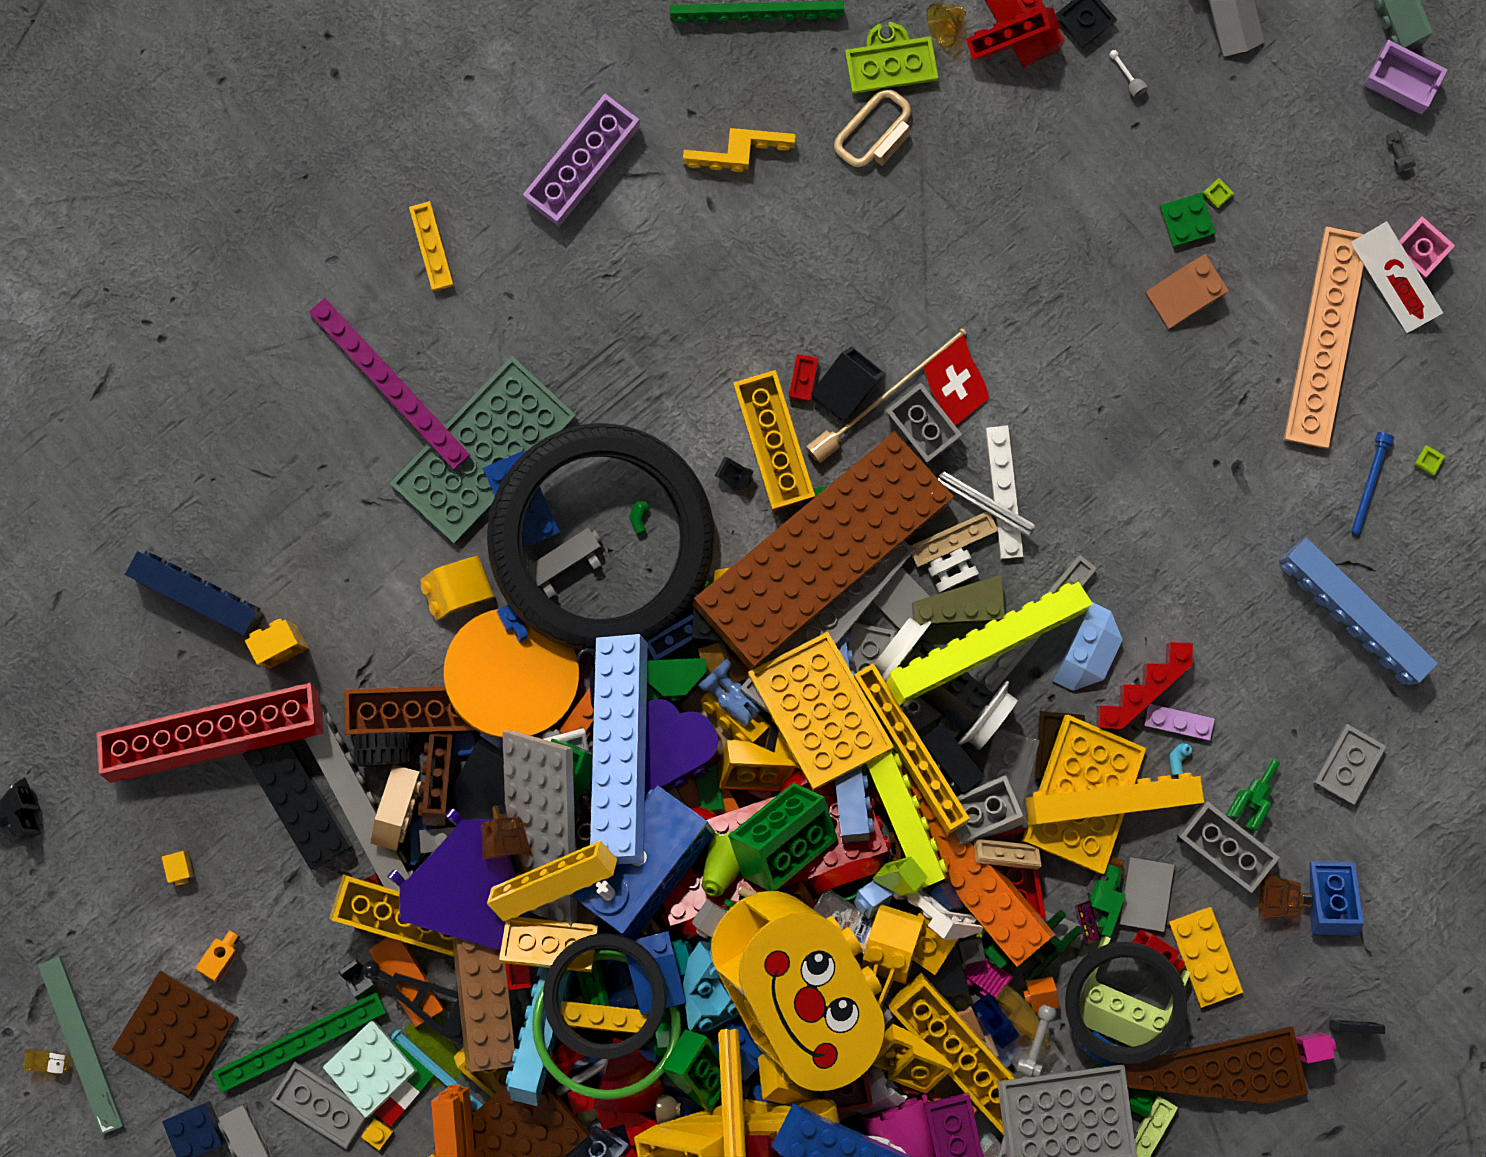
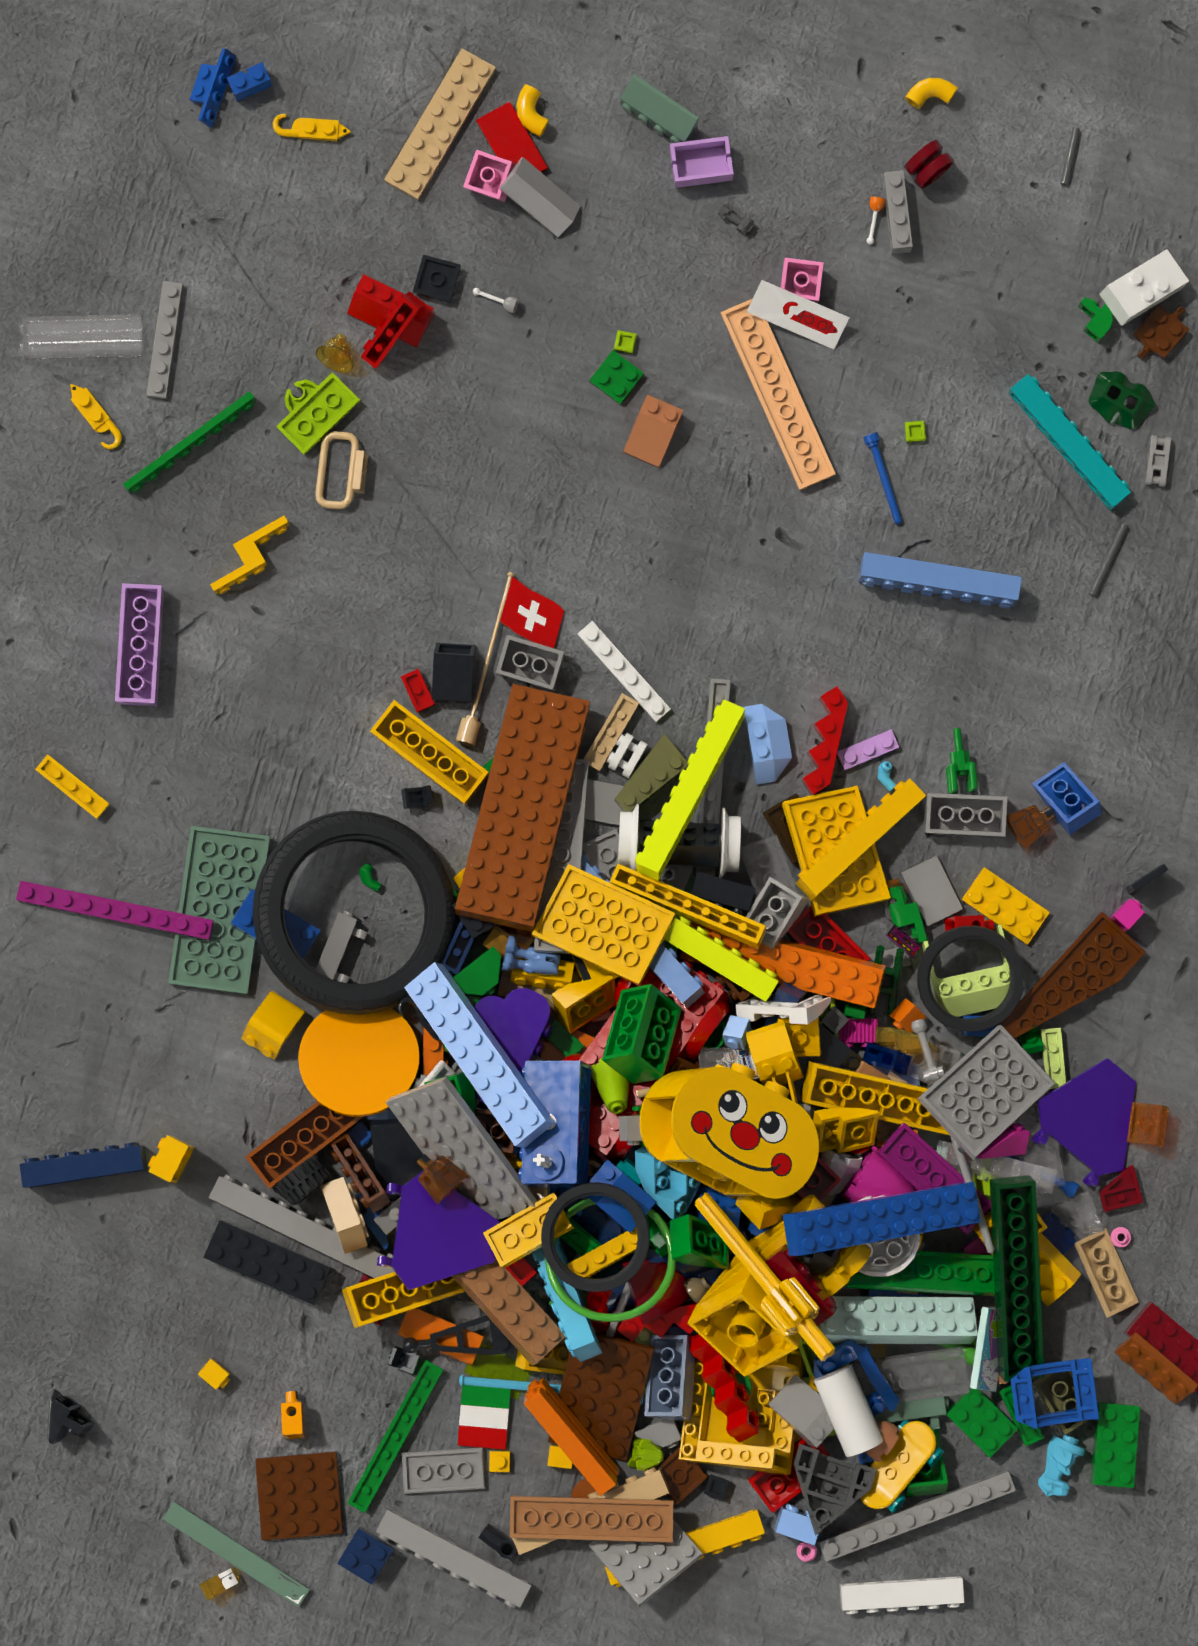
camera: 40 degrees left, 0 degrees up
(209, 733) = (169, 1258): red brick -> none
(370, 1069) = (460, 1418): light aqua plate -> none
(512, 621) = (332, 1019): blue plate -> none
(552, 881) = (499, 1182): yellow brick -> none
(901, 876) = (746, 1002): lime slope -> none
(986, 504) = (617, 689): light grey axle -> none
(1007, 854) = (810, 932): tan tile -> none
(1349, 764) = (1011, 693): light grey plate -> none

